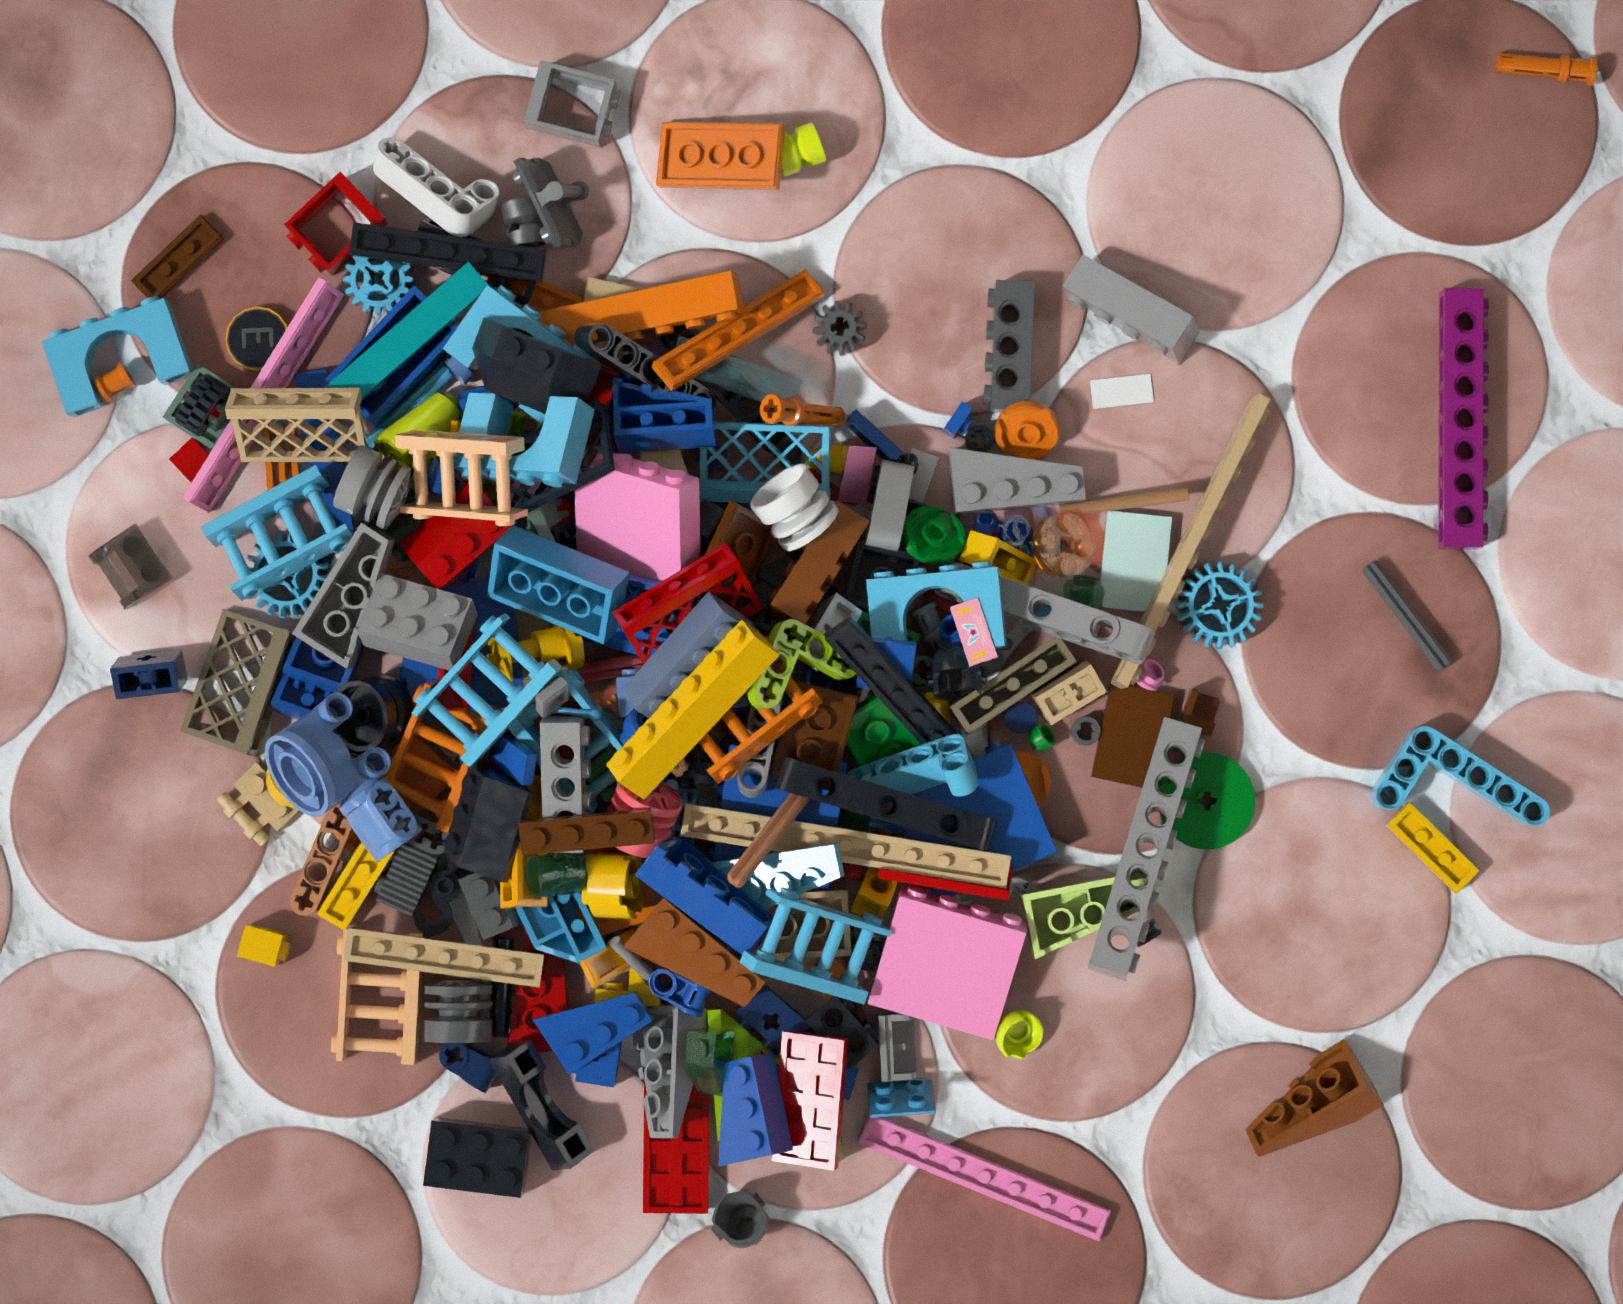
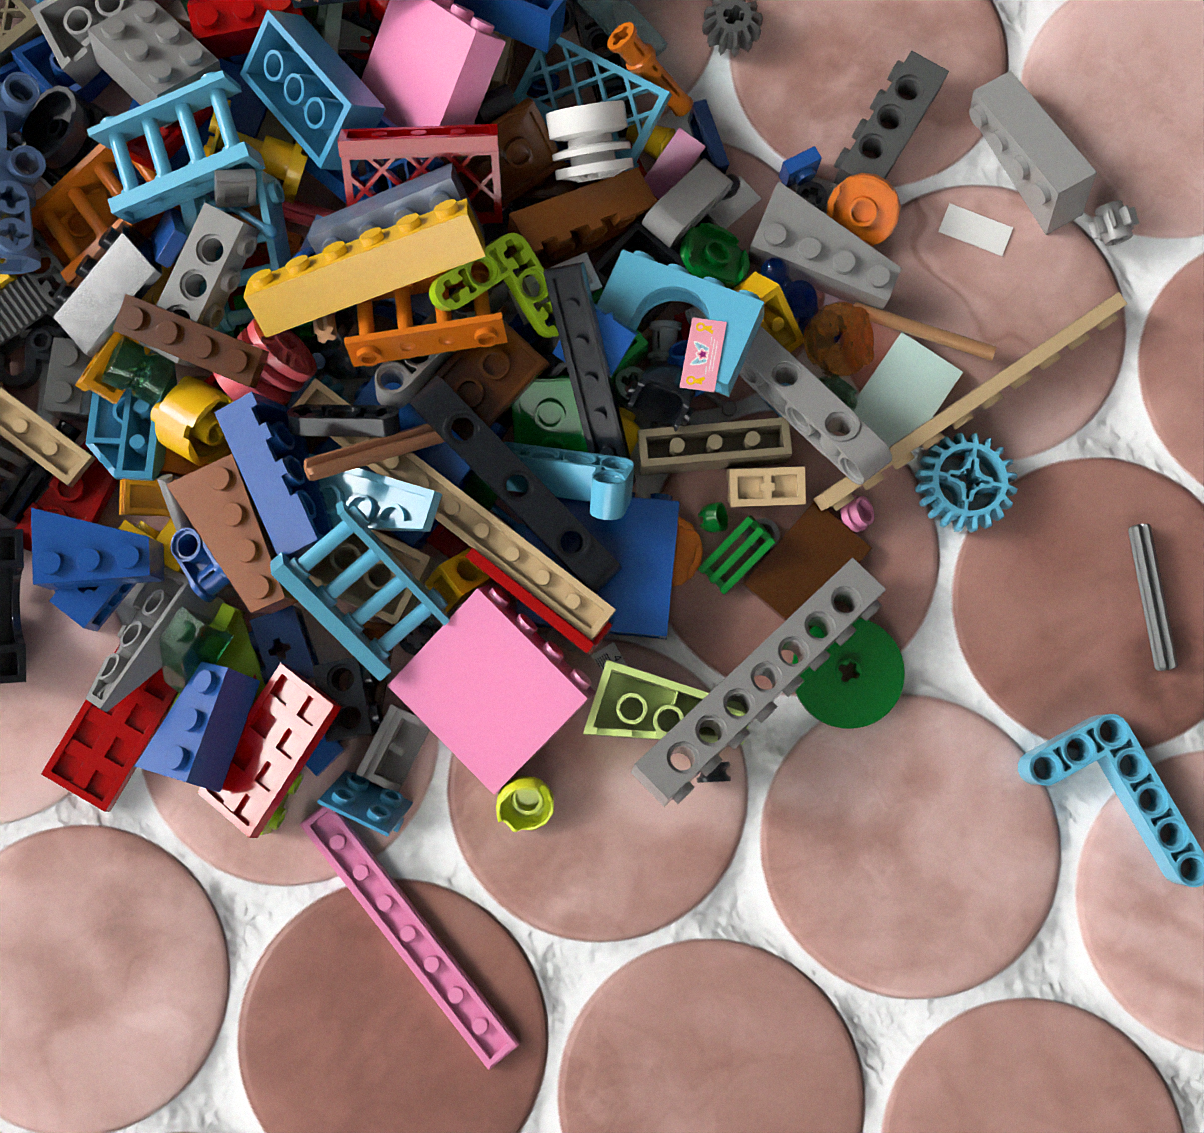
camera: 30 degrees right, 5 degrees down
(740, 1219) = (131, 836): dark grey cap -> none
(748, 818) = (343, 420): none -> black beam
(1021, 717) = (704, 487): dark blue tile -> none
(1068, 782) = (715, 577): none -> green tile
(1200, 711) = (892, 577): reddish brown panel -> none
(1227, 333) = (1113, 223): none -> light grey gear
(1322, 1100) = (802, 1052): dark orange wedge -> none
(1432, 847) = (1059, 849): yellow plate -> none

